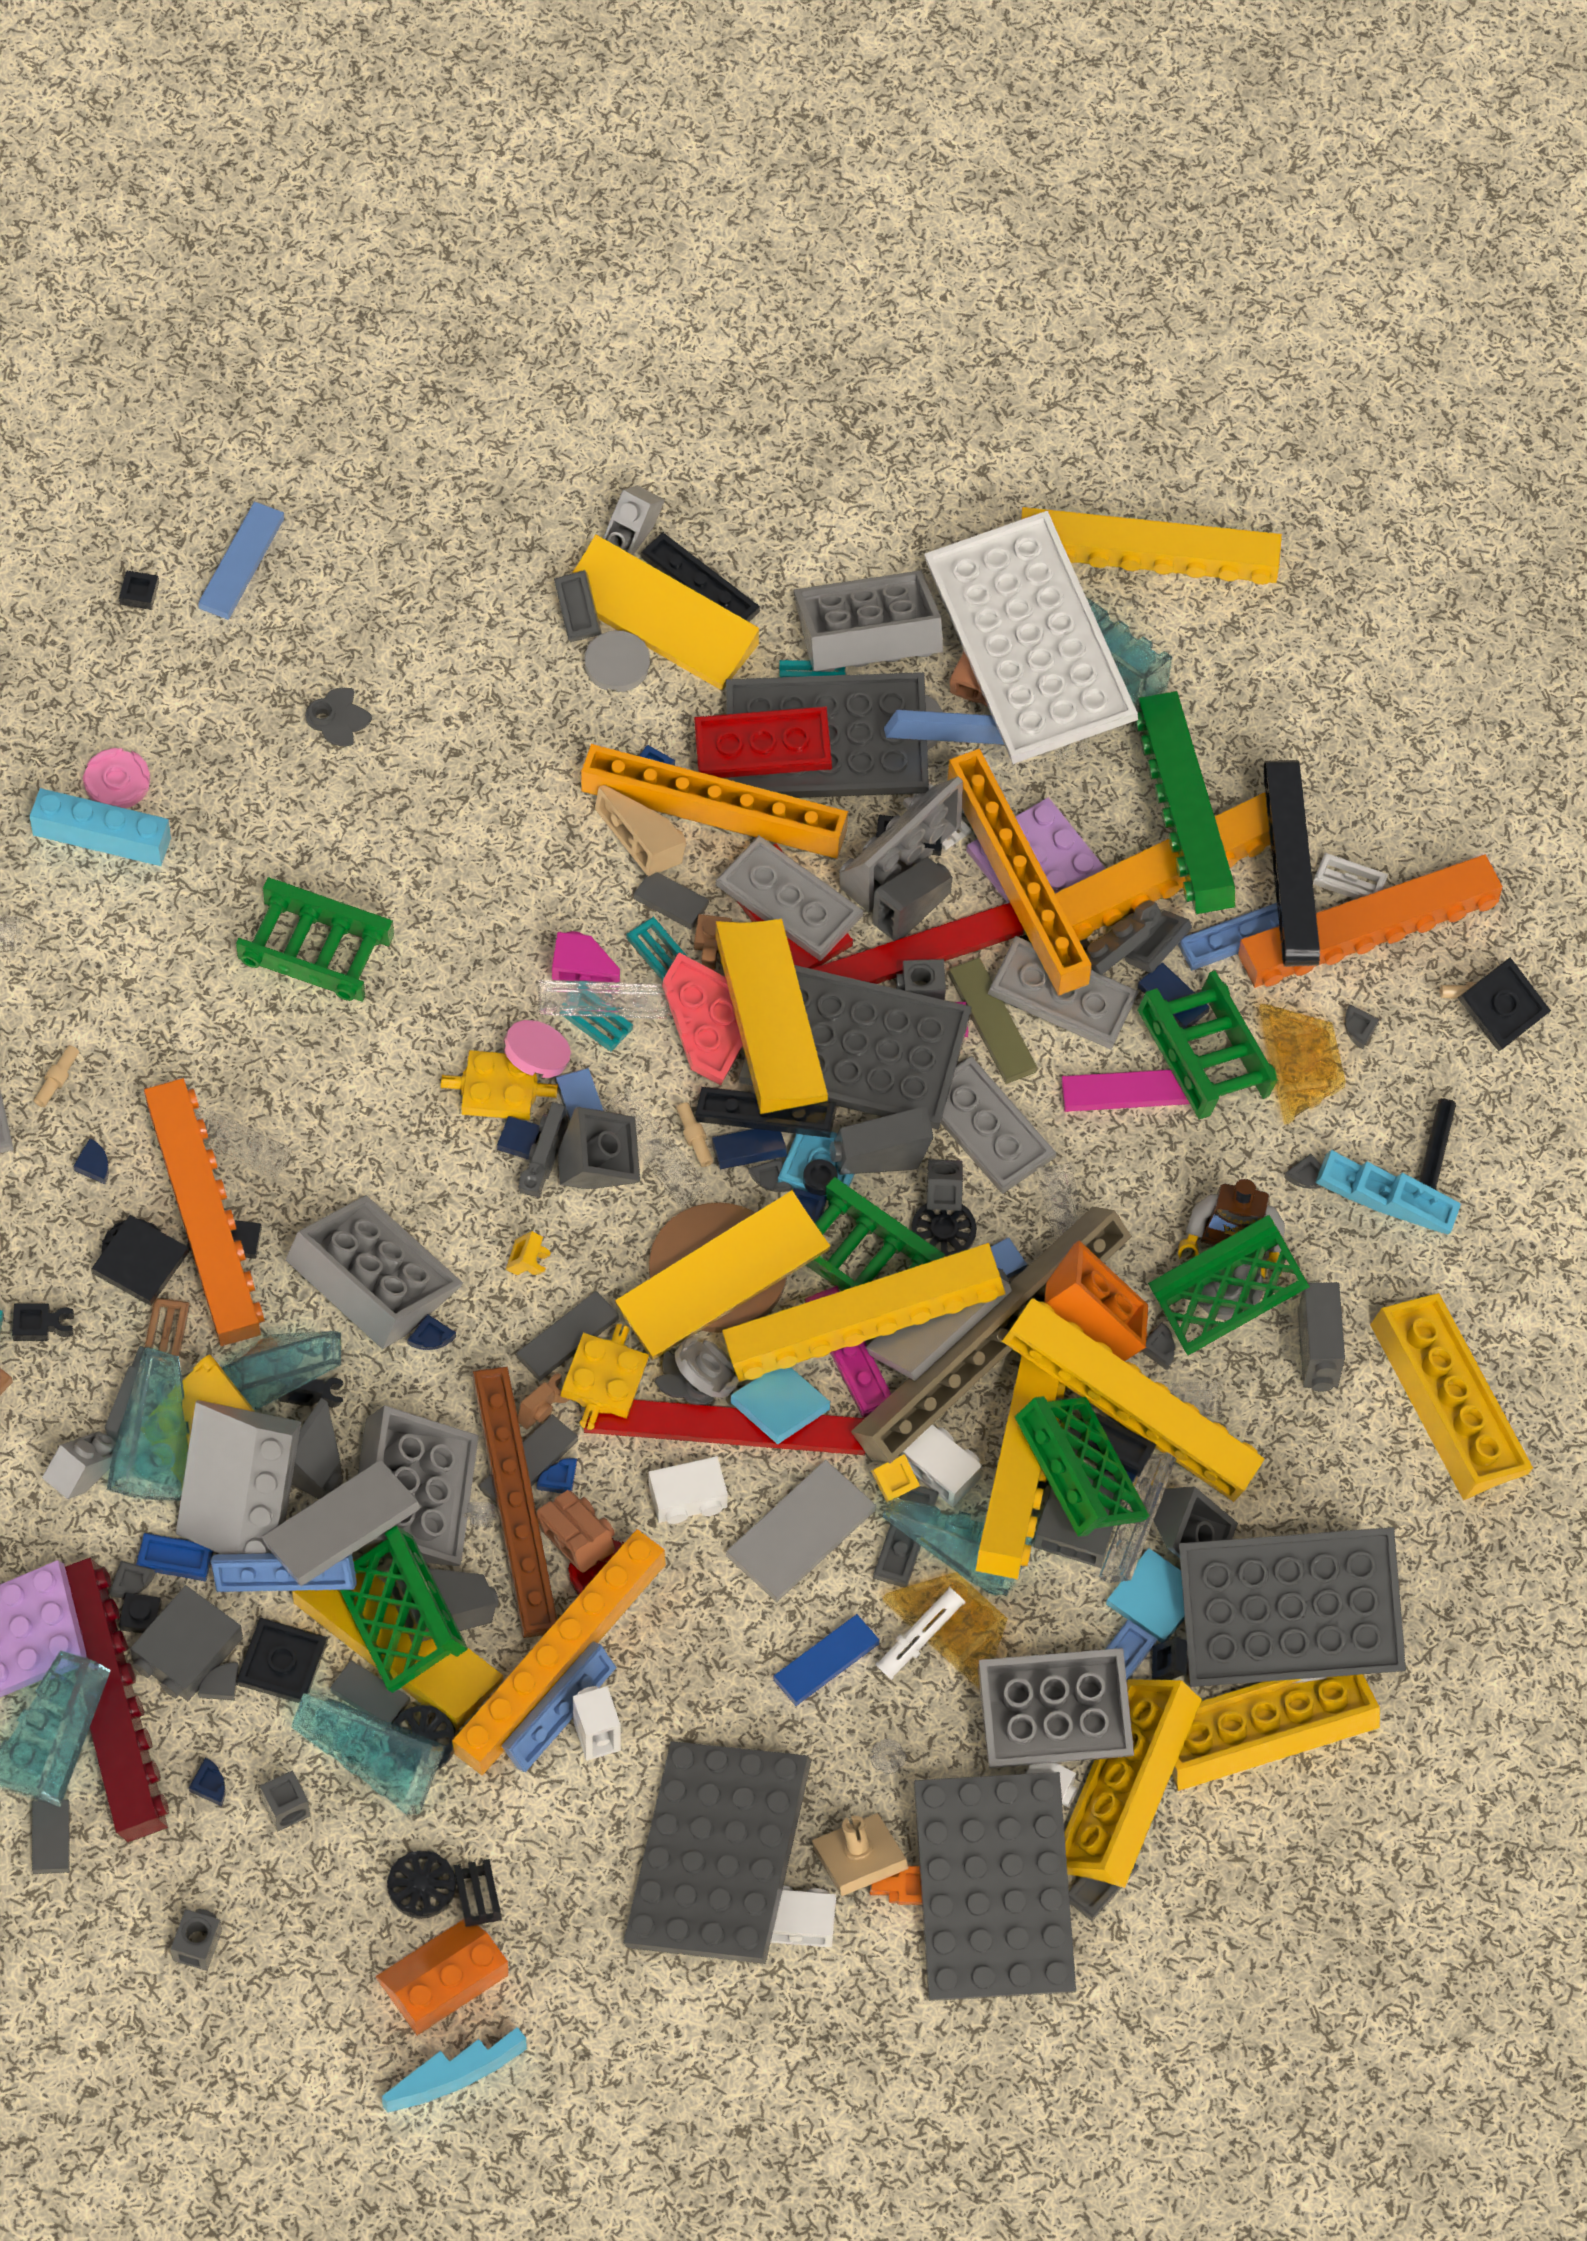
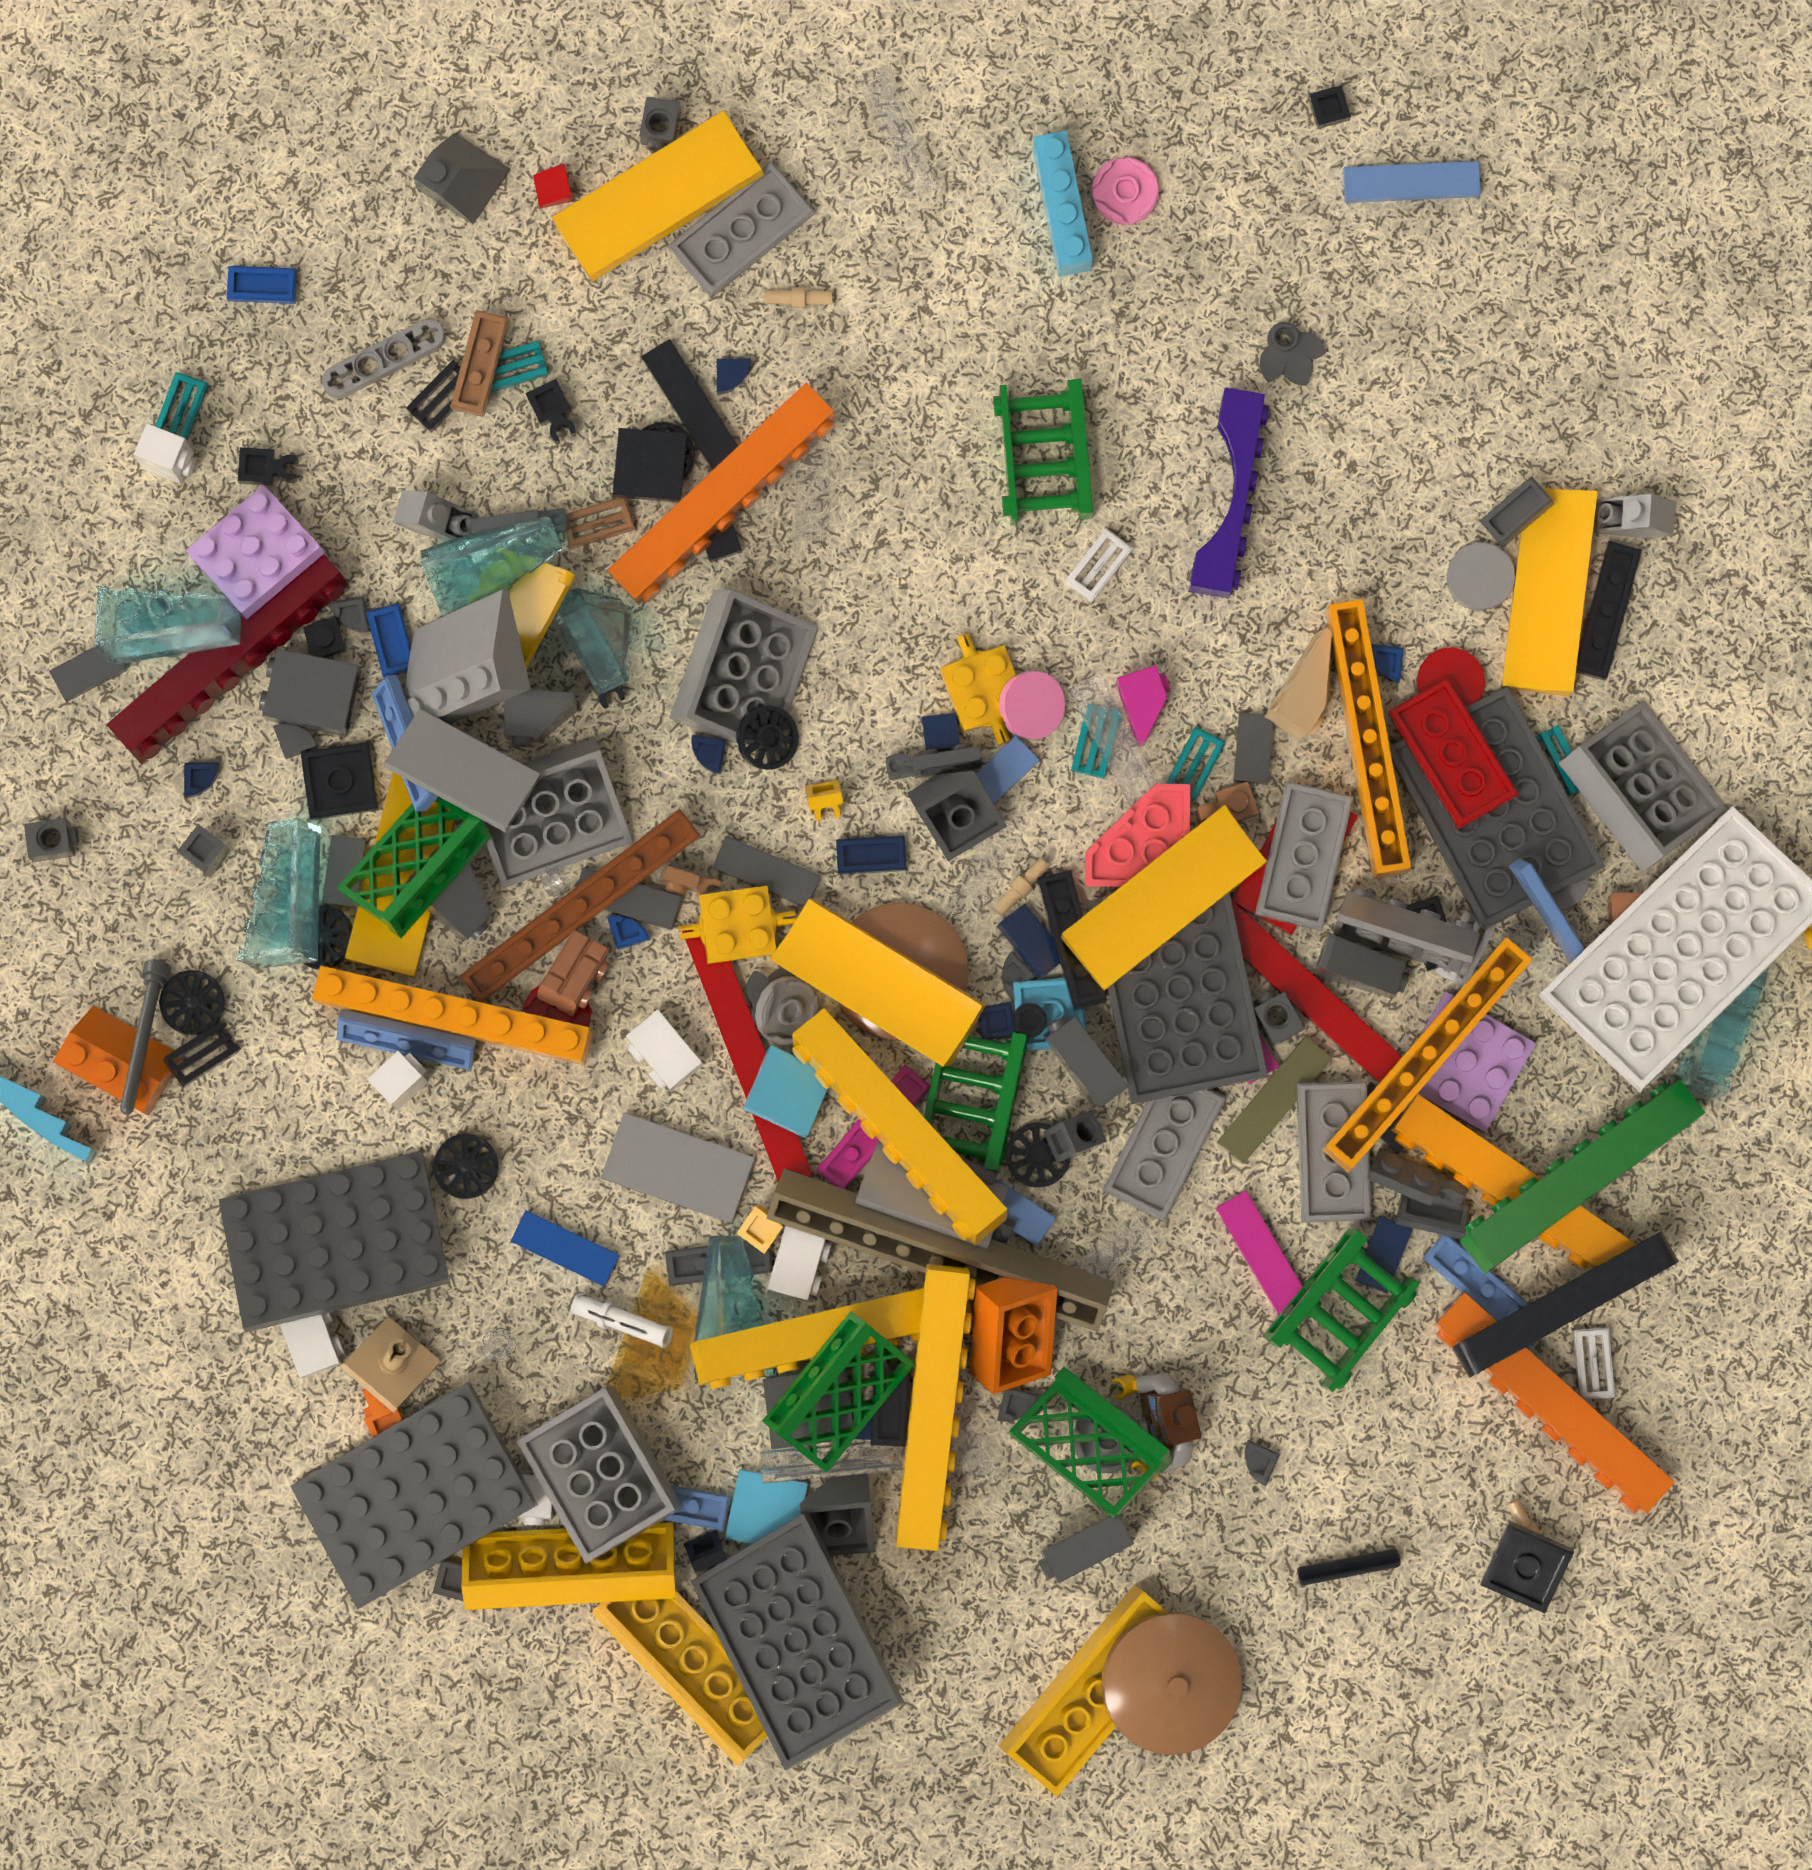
camera: 65 degrees right, 20 degrees up
(102, 1207) = (690, 403): none -> black tile
(379, 1903) = (155, 976): none -> dark grey piece
(381, 780) = (1239, 426): none -> dark purple arch
(446, 1275) = (767, 737): none -> black wheel
(450, 969) = (1082, 588): none -> white tile
(599, 1243) = (871, 855): none -> dark blue tile
(679, 719) = (1459, 667): none -> red tile
(705, 1711) = (465, 1166): none -> black wheel
(1303, 1057) = (1376, 1403): clear yellow wing -> none
(1360, 1025) = (1440, 1441): dark grey tile -> none
(1392, 1195) = (1273, 1544): medium azure slope -> none
(1474, 1326) = (1171, 1683): none -> medium nougat dish

